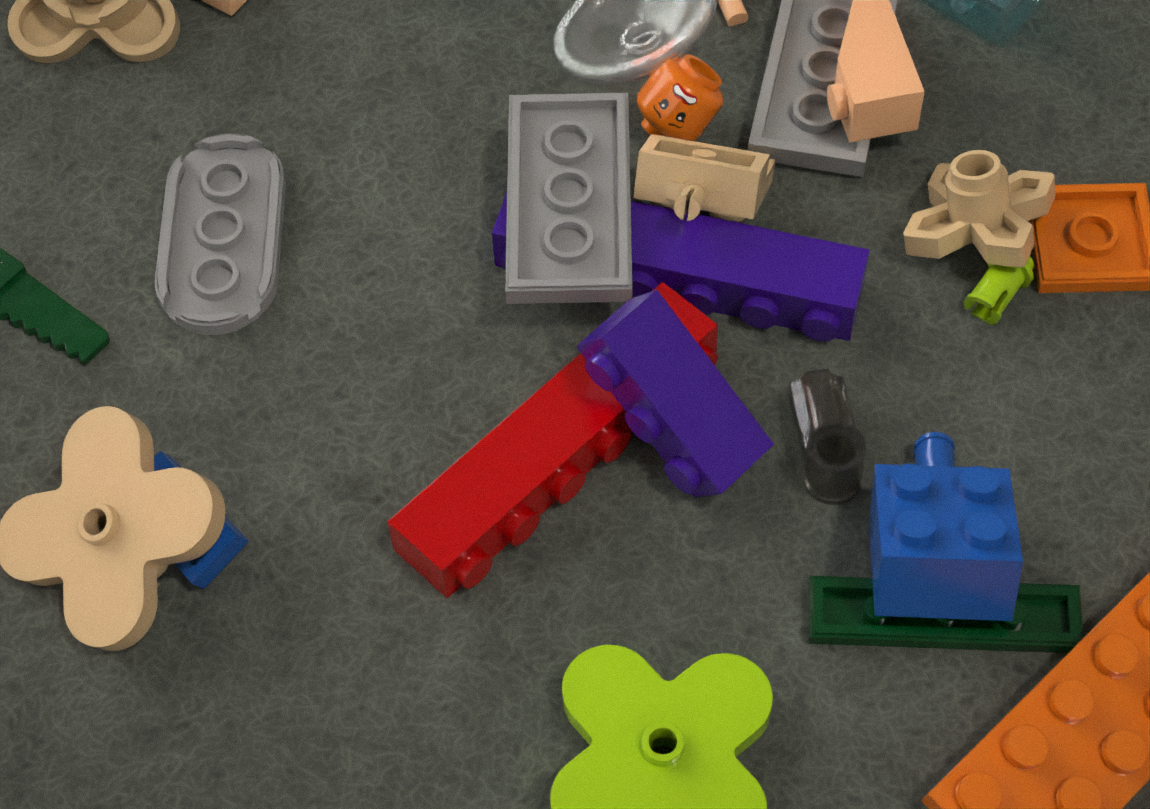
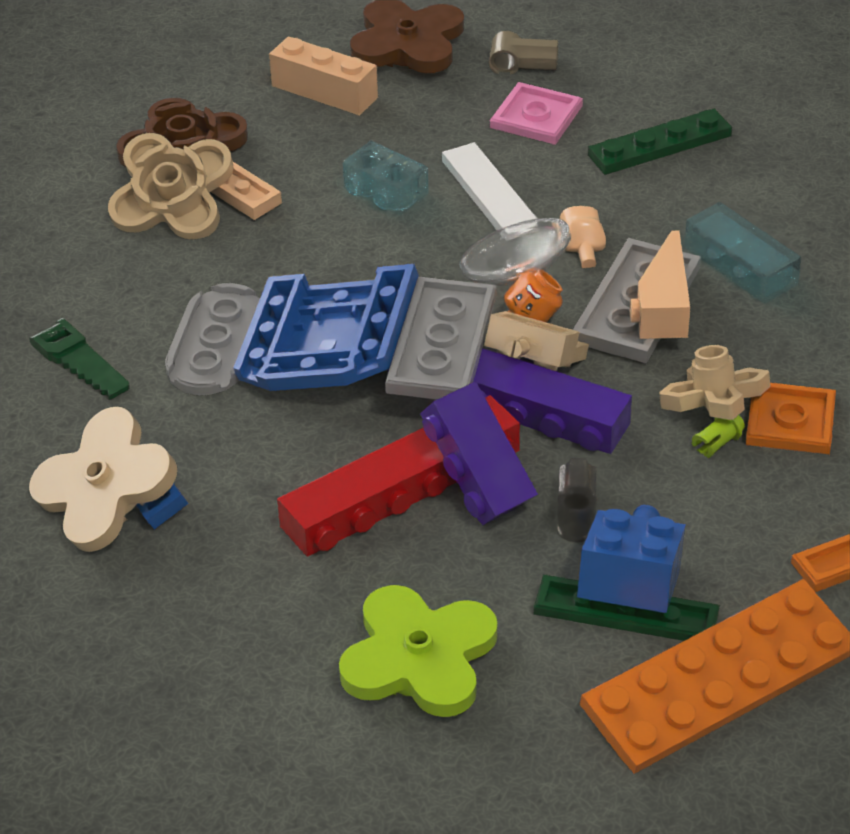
camera: 10 degrees right, 15 degrees down
(388, 204) = (325, 331): none -> blue wedge

